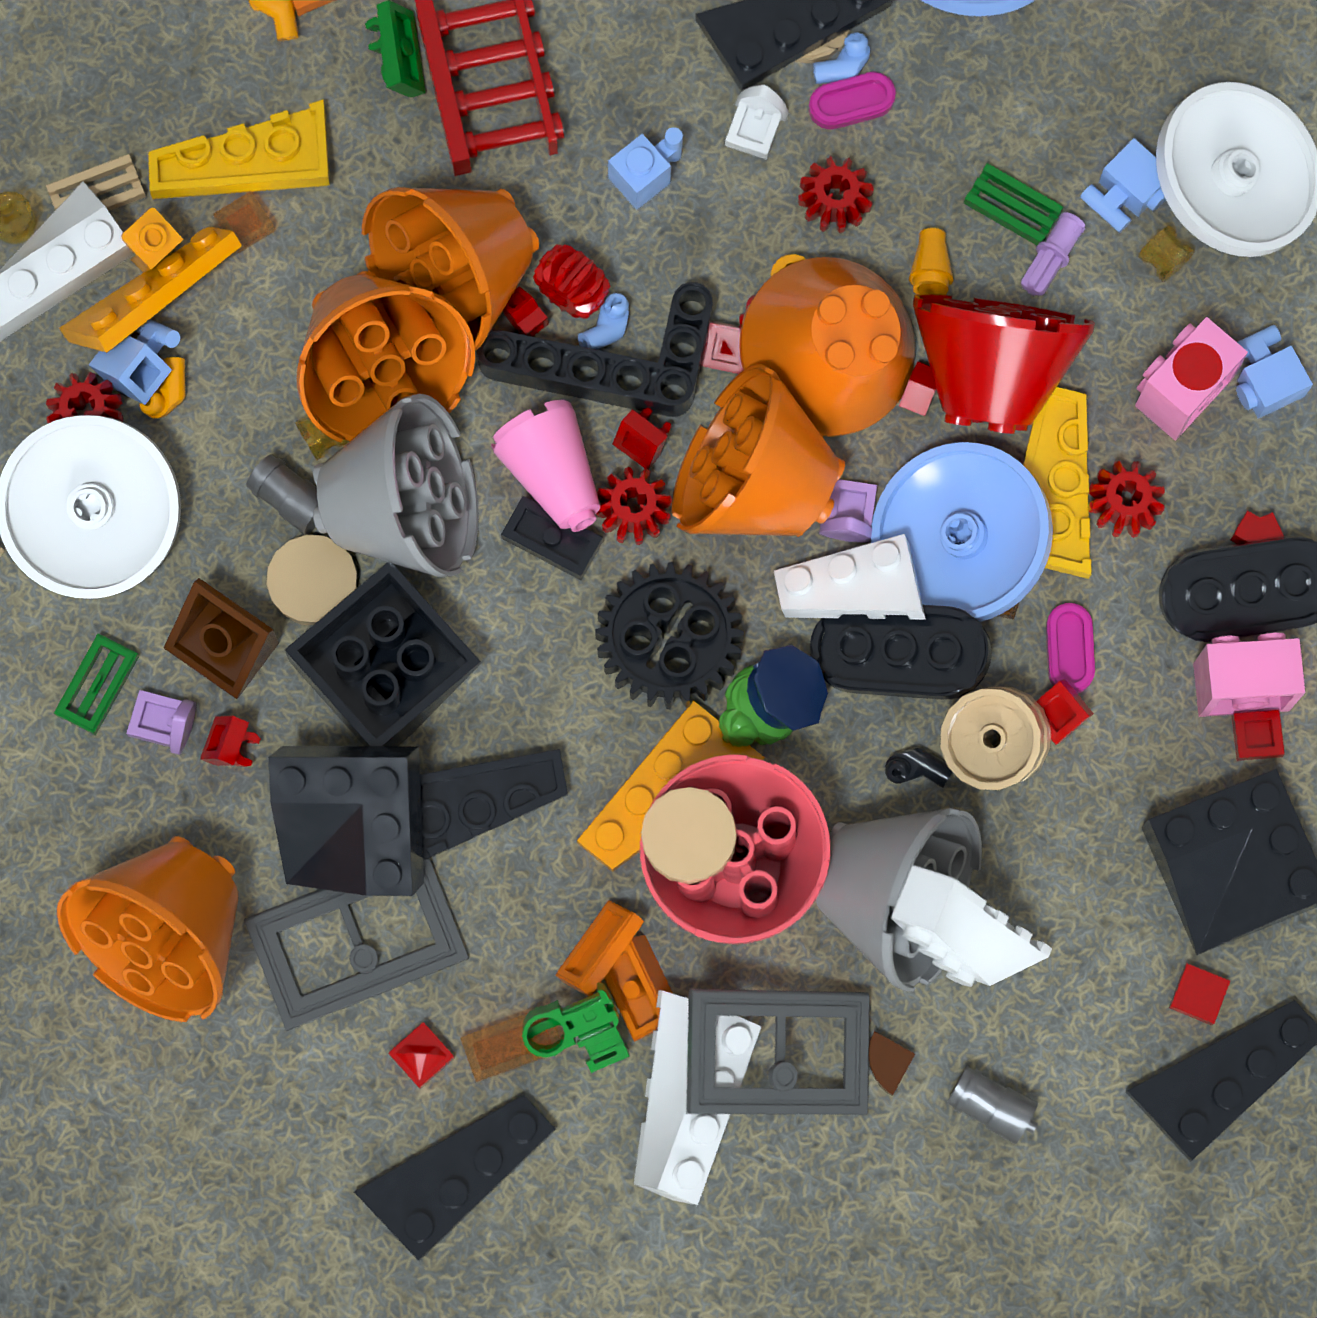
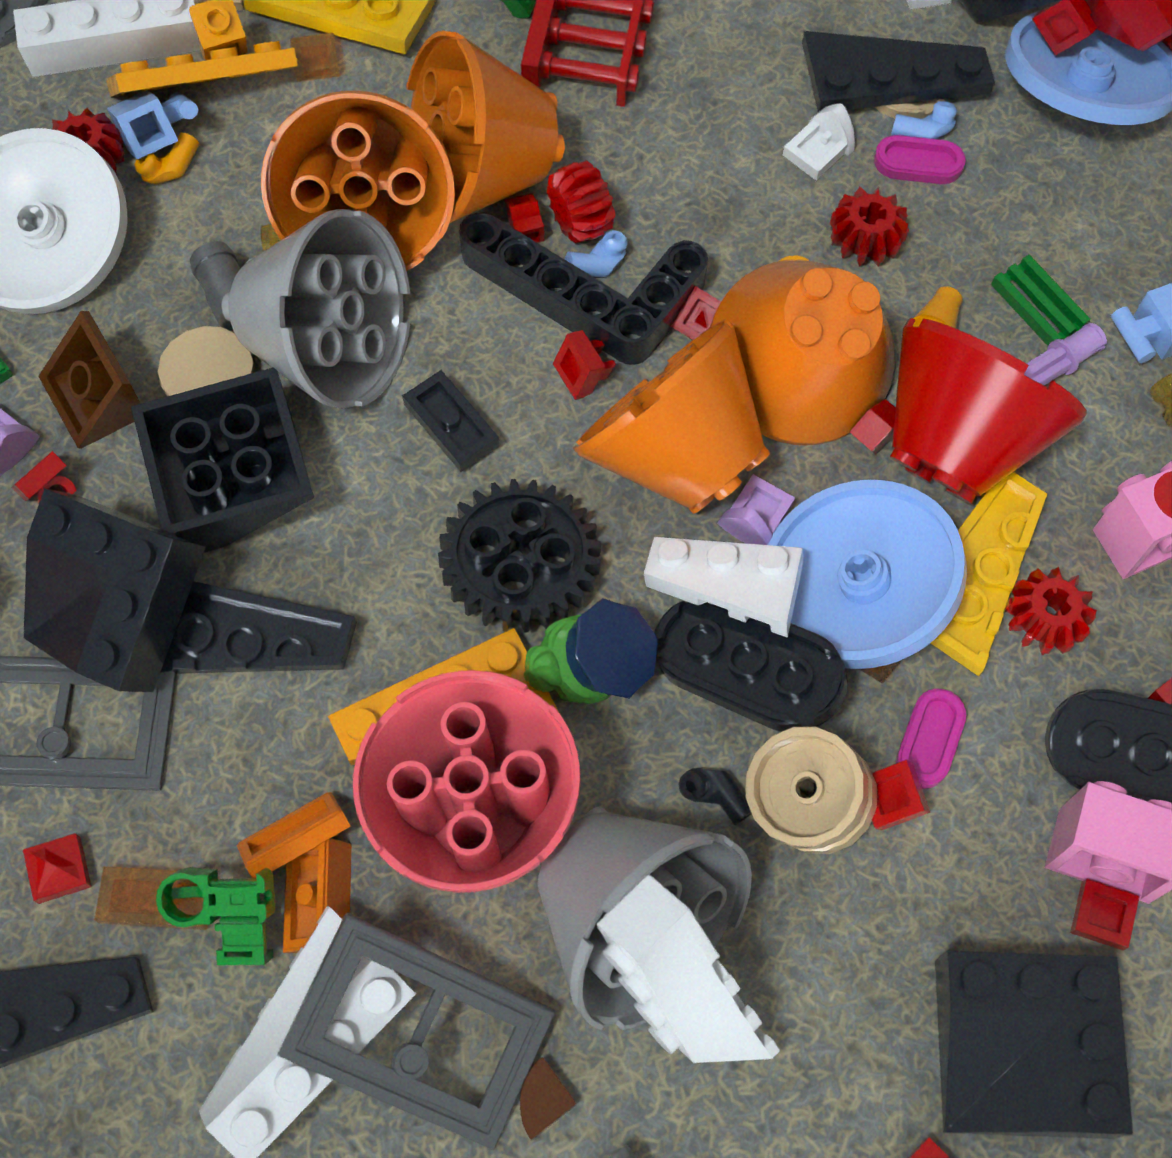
camera: 25 degrees right, 10 degrees down
(551, 463) = (479, 341): bright pink cone -> none
(645, 169) = (693, 136): light blue brick -> none
(645, 494) = (529, 433): red gear -> none
(688, 835) = (421, 740): tan tile -> none

